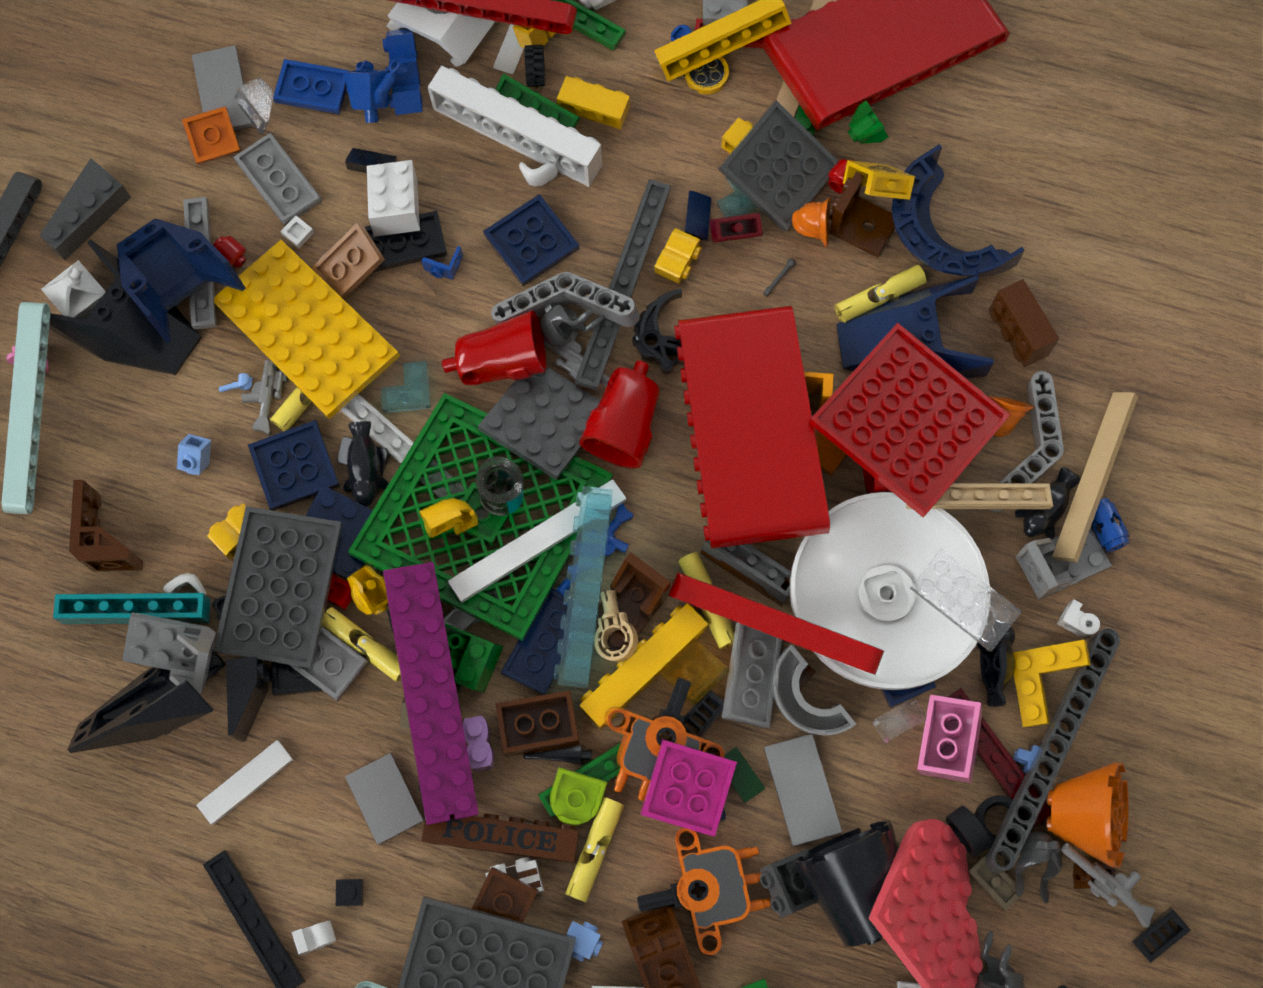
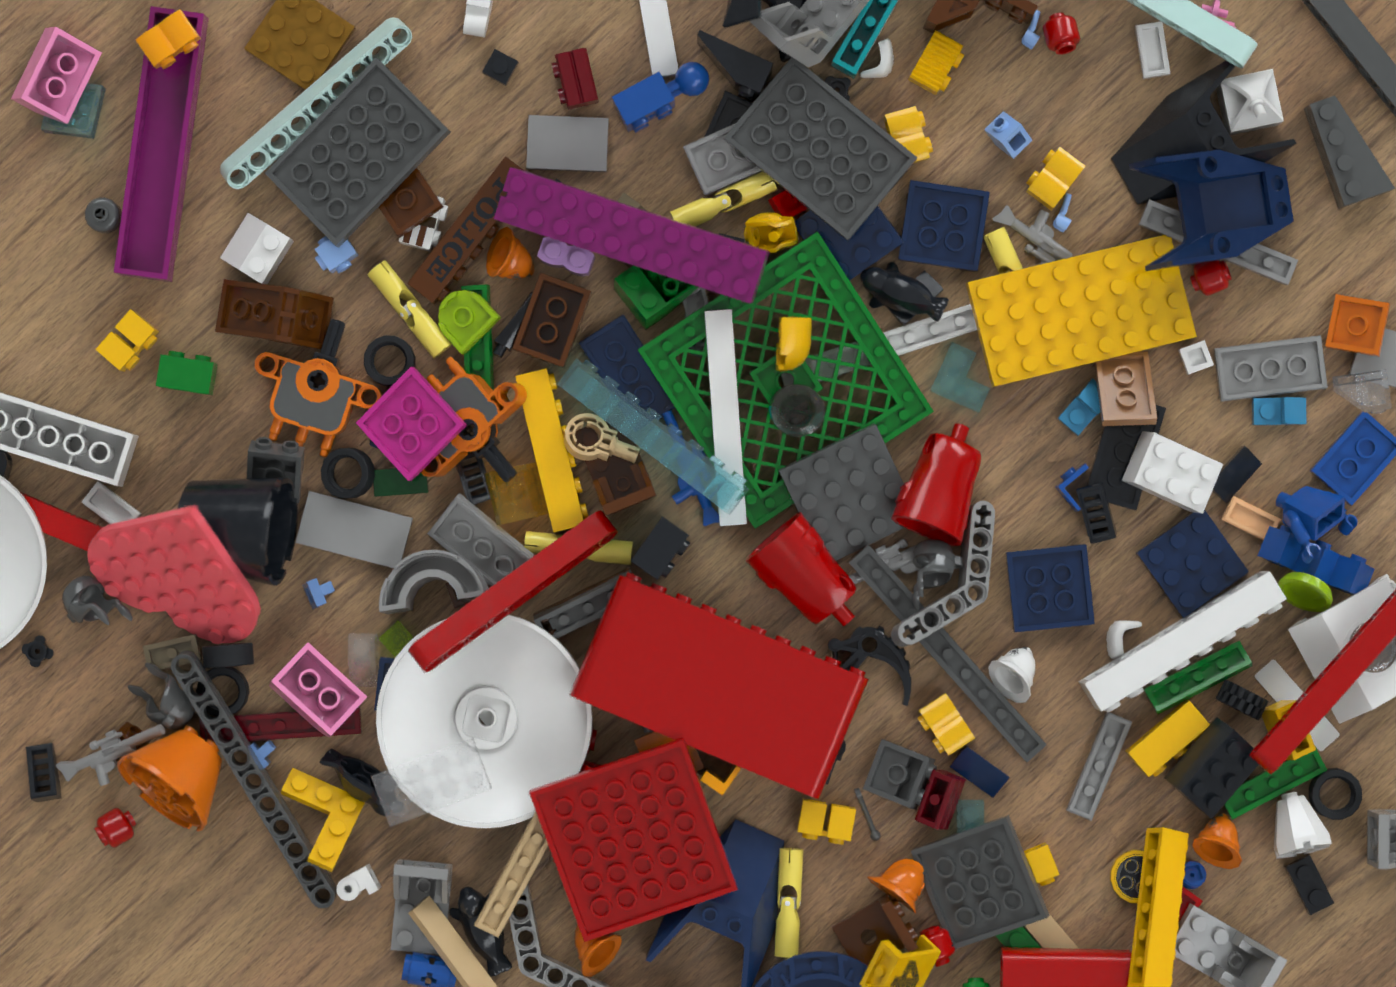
camera: 120 degrees right, 15 degrees up
(72, 389) = (1152, 50): none -> white tile
(92, 460) = (1061, 33): none -> red head
(109, 483) = (1030, 38): none -> light blue hand
(164, 541) = (935, 63): none -> yellow brick
(211, 403) = (1055, 177): none -> yellow brick
(304, 742) = (655, 98): none -> blue brick
(307, 157) = (1279, 411): none -> dark azure slope
(325, 822) = (576, 79): none -> dark red brick
(380, 290) = (1081, 409): none -> dark azure slope
(398, 134) = (1249, 518): none -> light nougat tile
(427, 61) = (1306, 591): none -> lime piece
(454, 156) = (1192, 562): none -> dark blue plate
(466, 226) = (1094, 528): none -> black slope
(505, 792) = (508, 257): none -> orange piece
(595, 56) = (1213, 768): none -> black brick
(610, 227) = (1014, 674): none -> white piece
(633, 855) = (380, 342): none -> black tyre
(643, 139) = (1098, 766): none -> light grey tile
(647, 28) = (1219, 843): none -> orange piece
(670, 529) = (660, 549): none -> black brick
(735, 267) = (899, 774): none -> dark grey plate
(779, 821) = (328, 467): none -> black tyre
(800, 294) = (839, 823): none -> yellow piece
(868, 703) = (396, 638): none -> clear neon green tile
(871, 789) = (316, 592): none -> medium blue tile
(1165, 844) = (115, 827): none -> red head

